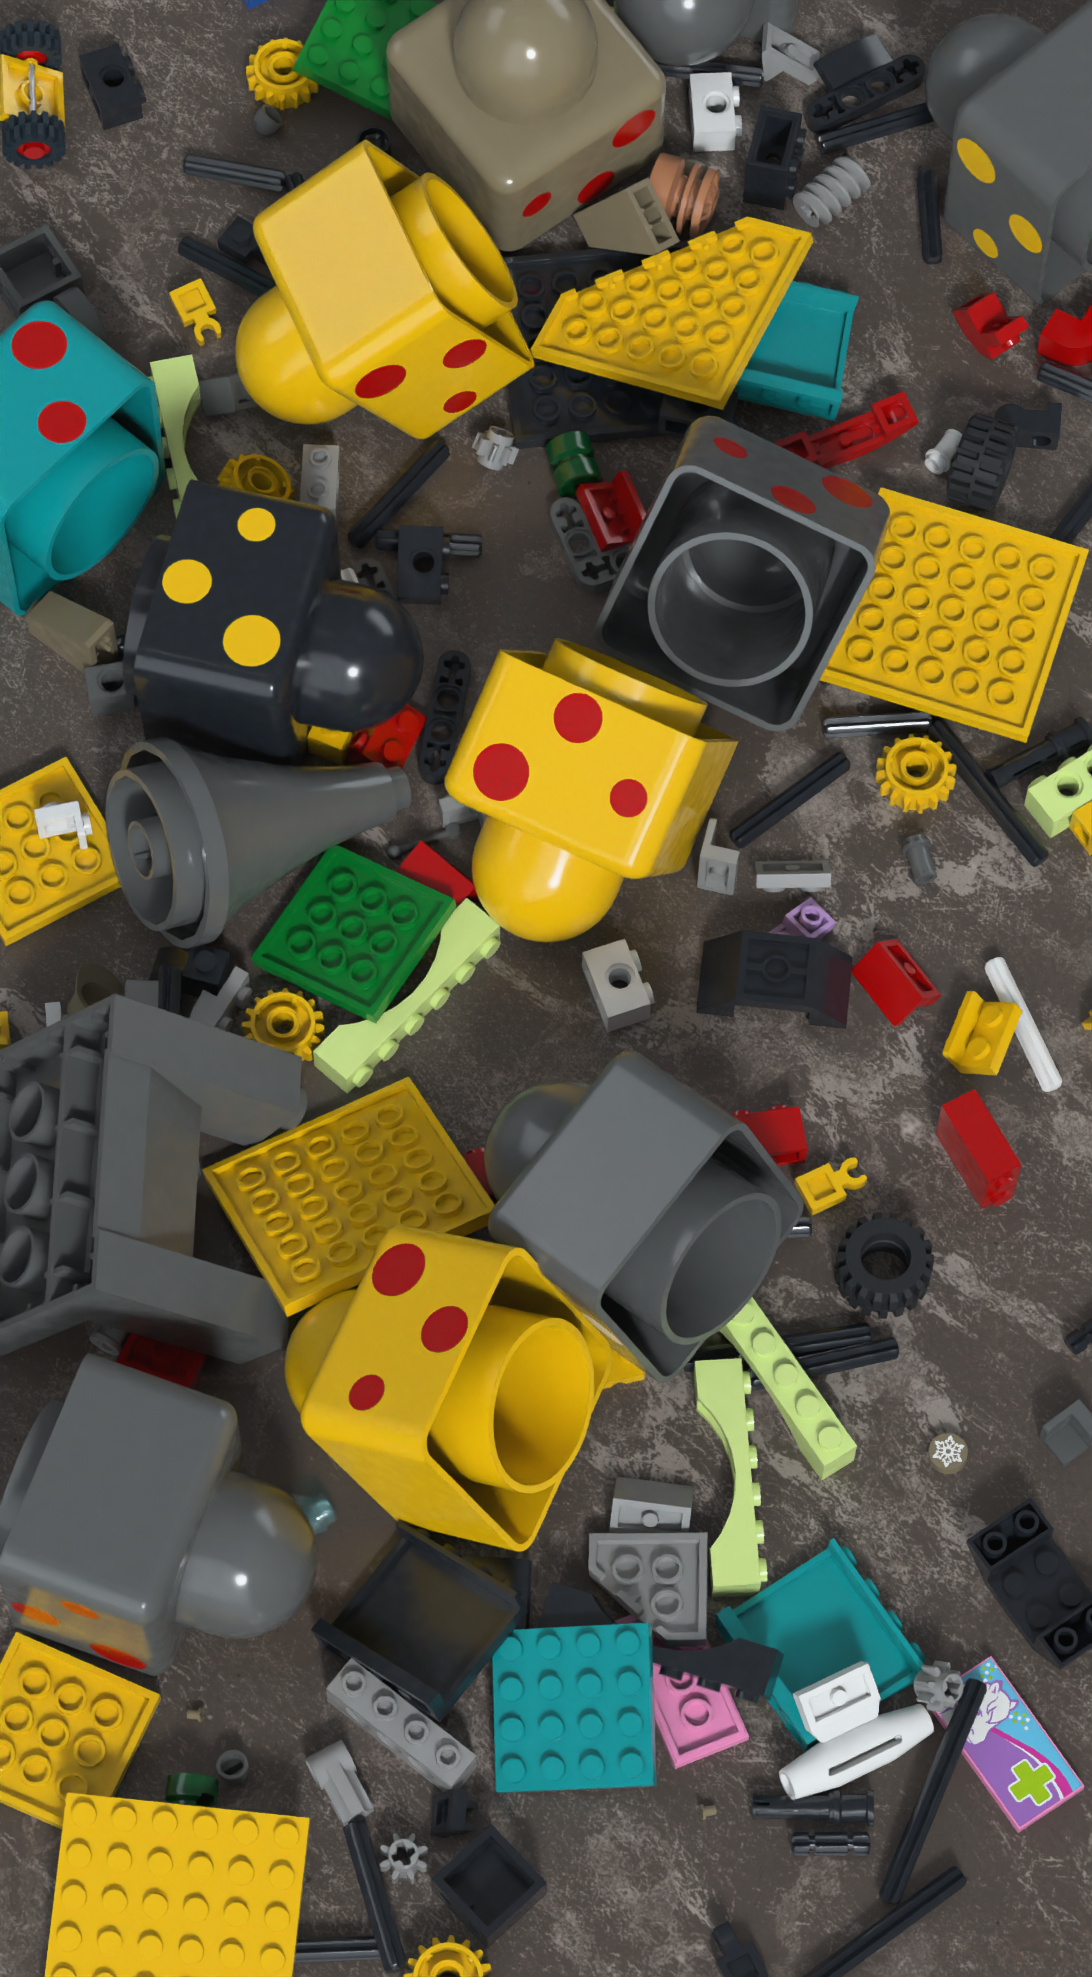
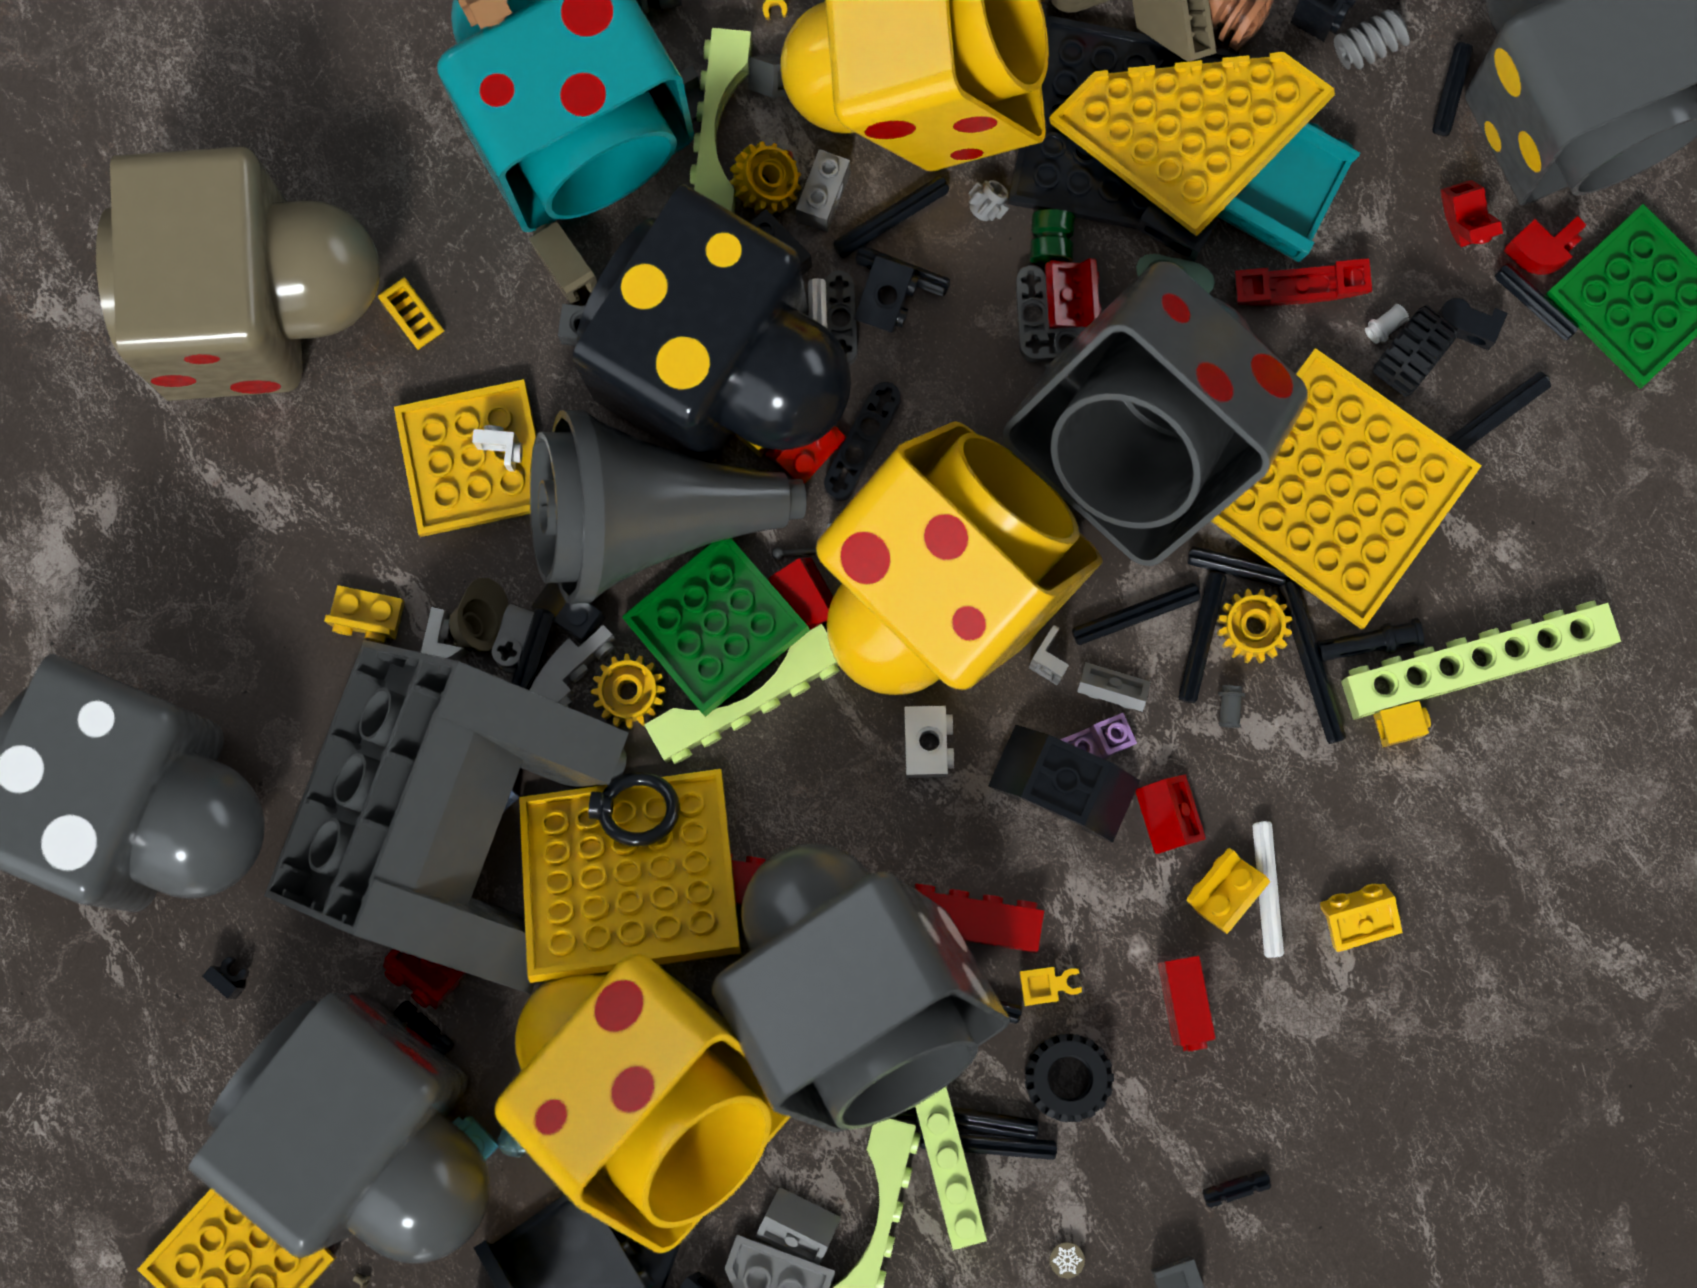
camera: 25 degrees right, 15 degrees up
(297, 1140) = (602, 805): none -> black piece
(866, 803) = (1202, 638): none -> black axle

